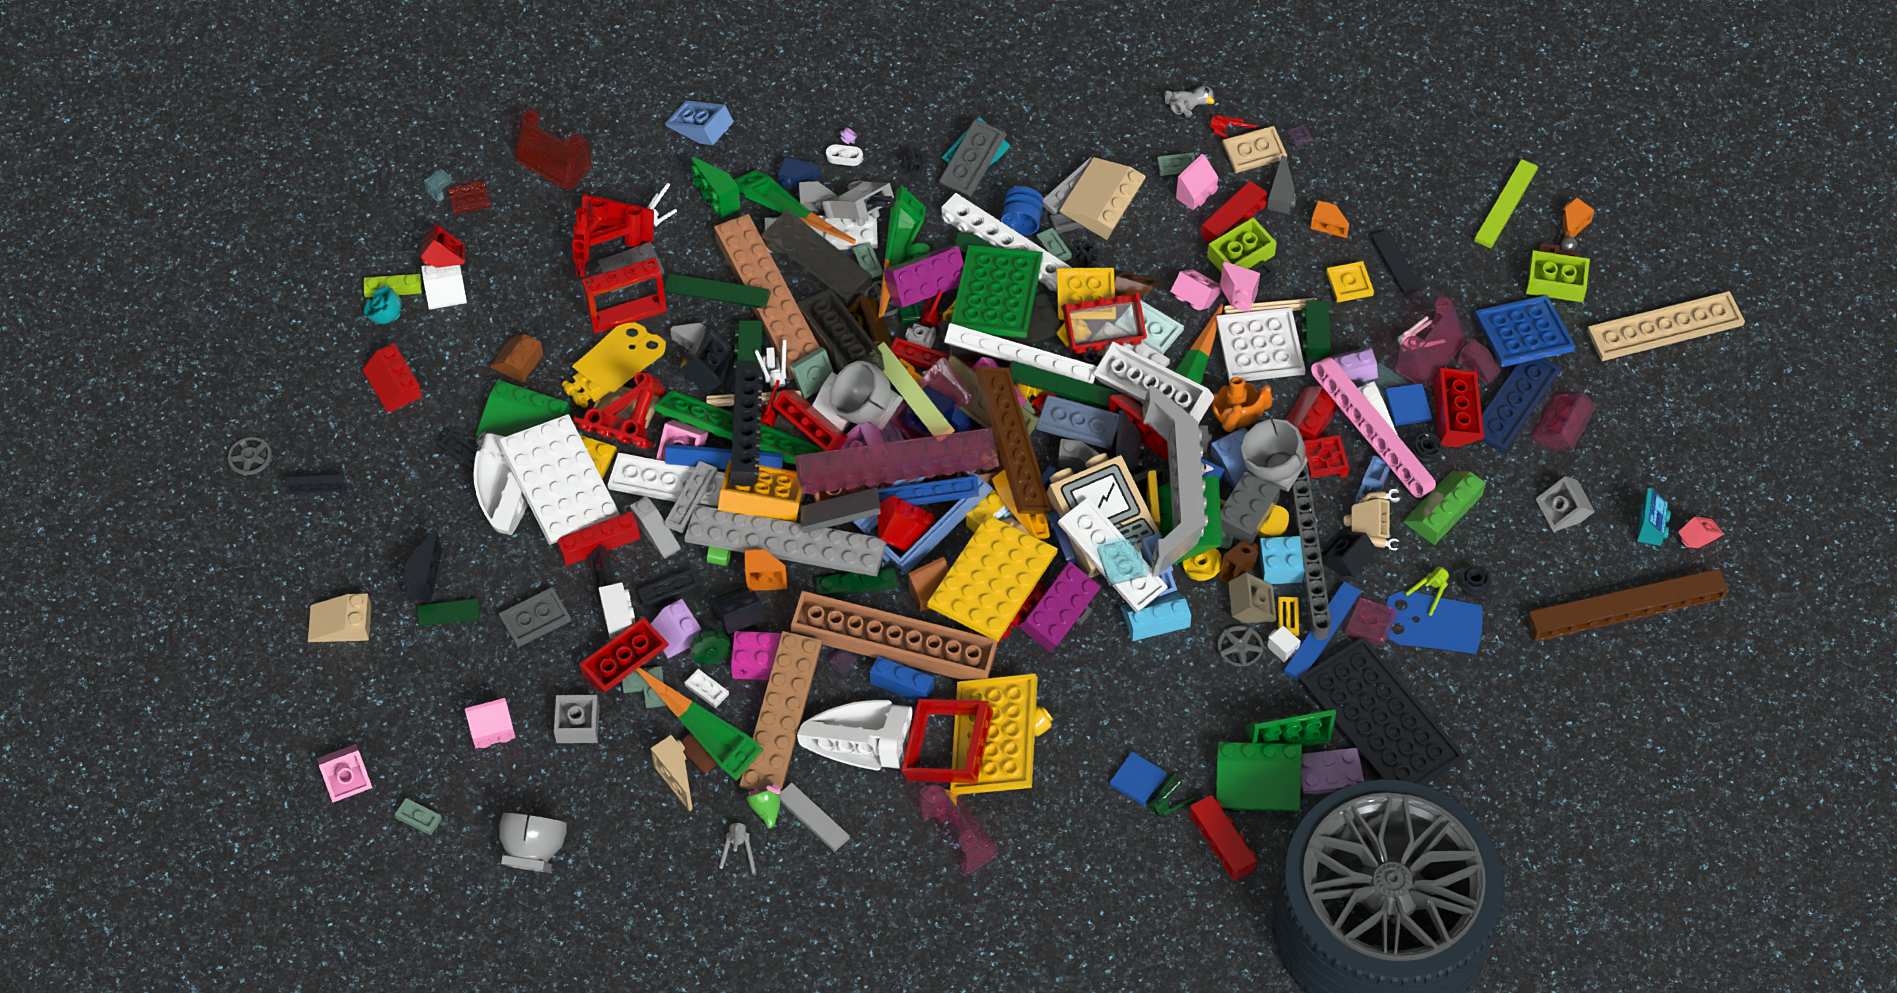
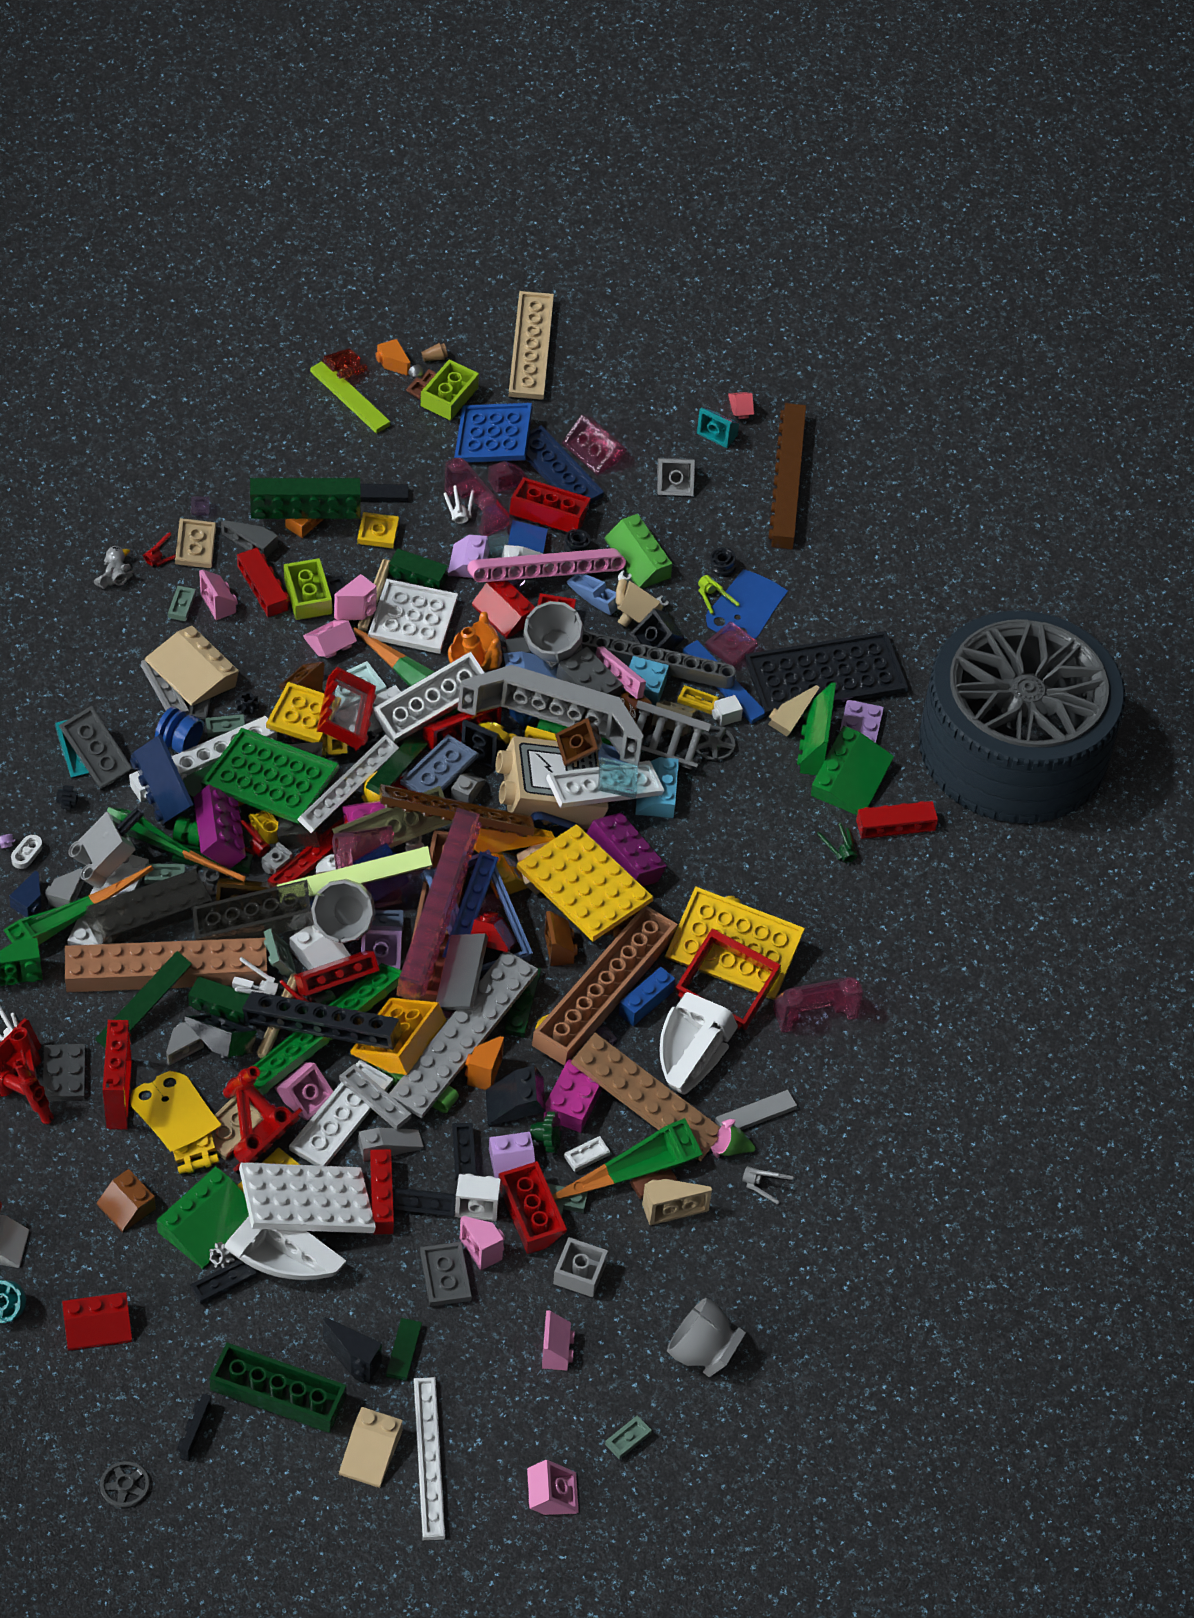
camera: 75 degrees left, 5 degrees down
(347, 668) = (429, 1459): none -> white tile
(370, 528) = (278, 1387): none -> dark green brick
(568, 631) = (482, 1241): none -> bright pink slope
(716, 457) = (338, 1065): blue tile -> none
(950, 214) = (161, 781): none -> dark blue slope
(1138, 779) = (814, 860): blue tile -> none
(1140, 449) = (498, 729): none -> yellow plate
(1147, 514) = (578, 741): none -> reddish brown slope
(1231, 593) = (680, 721): none -> light grey fence
(1263, 533) = (631, 681): none -> bright pink plate
(1302, 697) = (790, 711): none -> tan slope
(1335, 203) = (305, 498): none -> dark green brick
(1542, 178) = (342, 361): none -> clear red plate
(1605, 252) = (436, 352): none -> medium nougat cone

